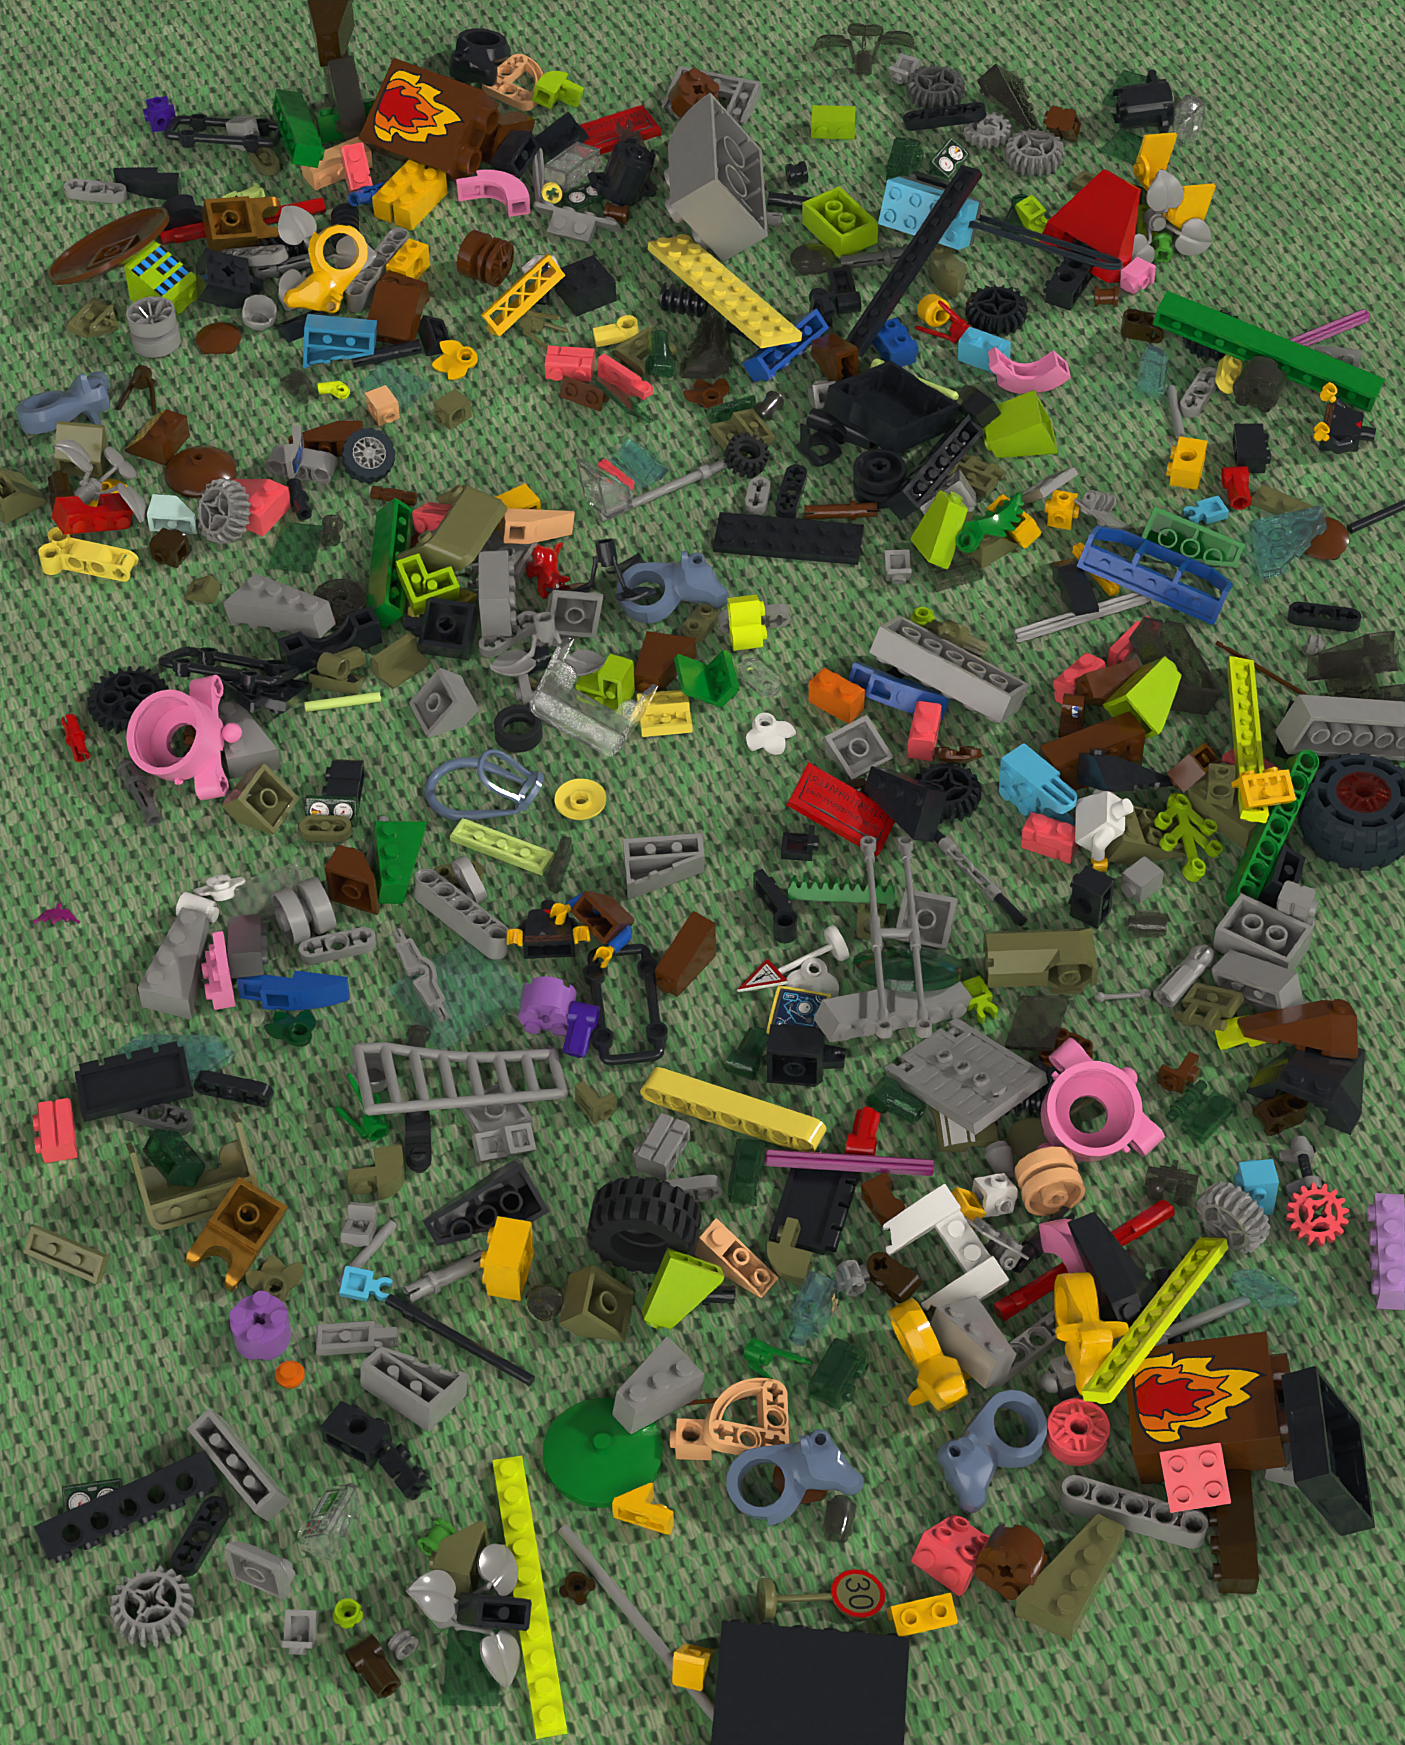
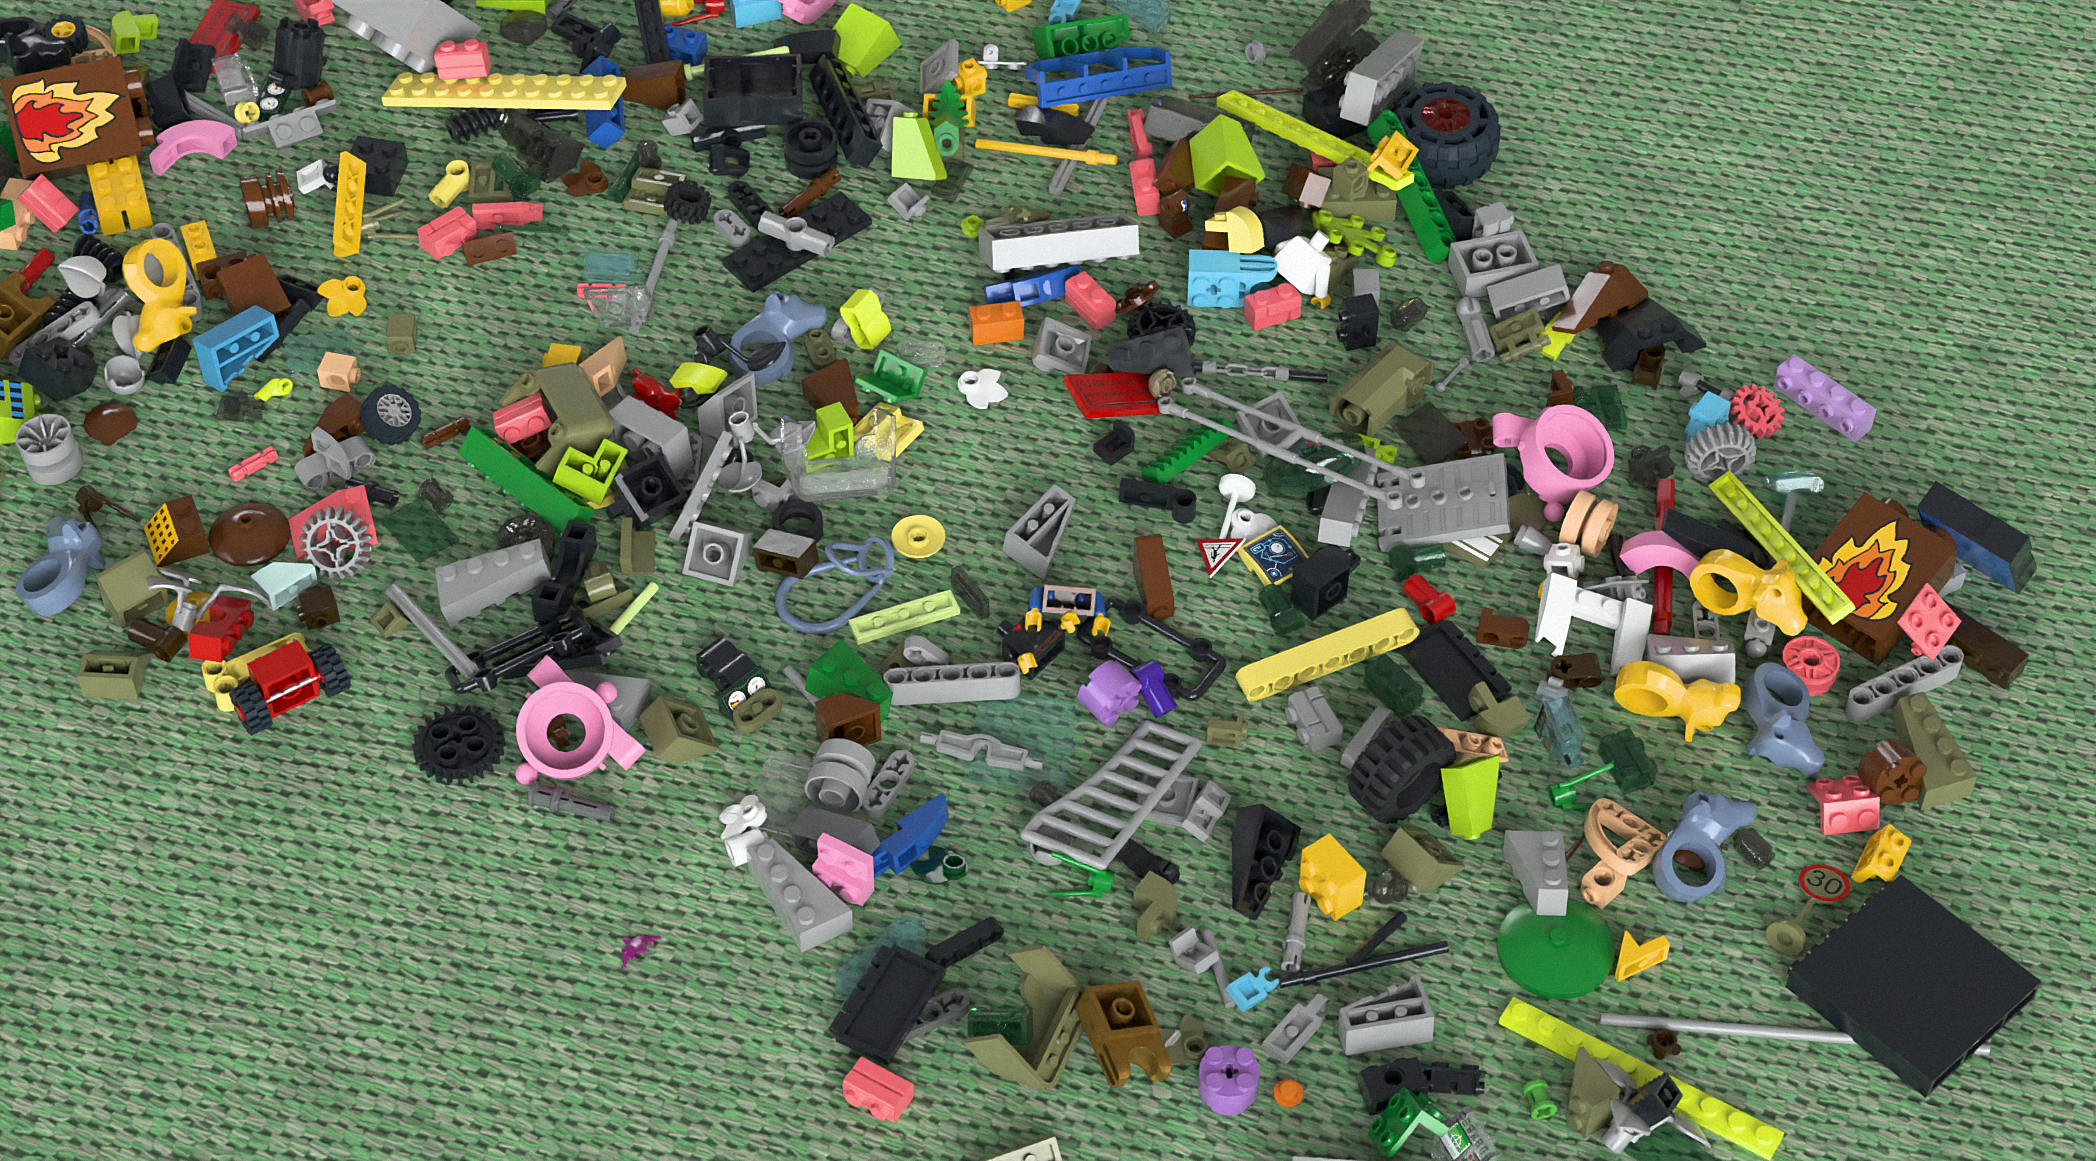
camera: 50 degrees left, 0 degrees up
(75, 738) = (455, 808): red pin -> none
(79, 575) = (286, 681): none -> brick
(207, 614) = (432, 631): none -> light grey axle
(260, 427) = (253, 464): none -> coral axle
(329, 1462) = (1402, 1117): none -> green bracket
(476, 736) = (785, 553): none -> dark brown brick
(483, 648) = (702, 486): none -> light grey plate
(488, 1330) = (1376, 939): none -> black bar
(513, 66) = (68, 30): none -> black wheel
(576, 575) = (699, 376): none -> neon yellow slope
(691, 1665) = (1806, 1015): yellow slope -> none
(718, 248) = (462, 59): none -> coral brick
(780, 528) = (796, 233): none -> light grey piece
(849, 1162) = (1449, 621): magenta axle -> none
(880, 833) = (1162, 383): none -> dark tan plate
(1066, 628) = (1091, 157): none -> yellow bar
(1071, 754) = (1243, 229): none -> light yellow brick
(1332, 611) = (1239, 20): black beam -> none

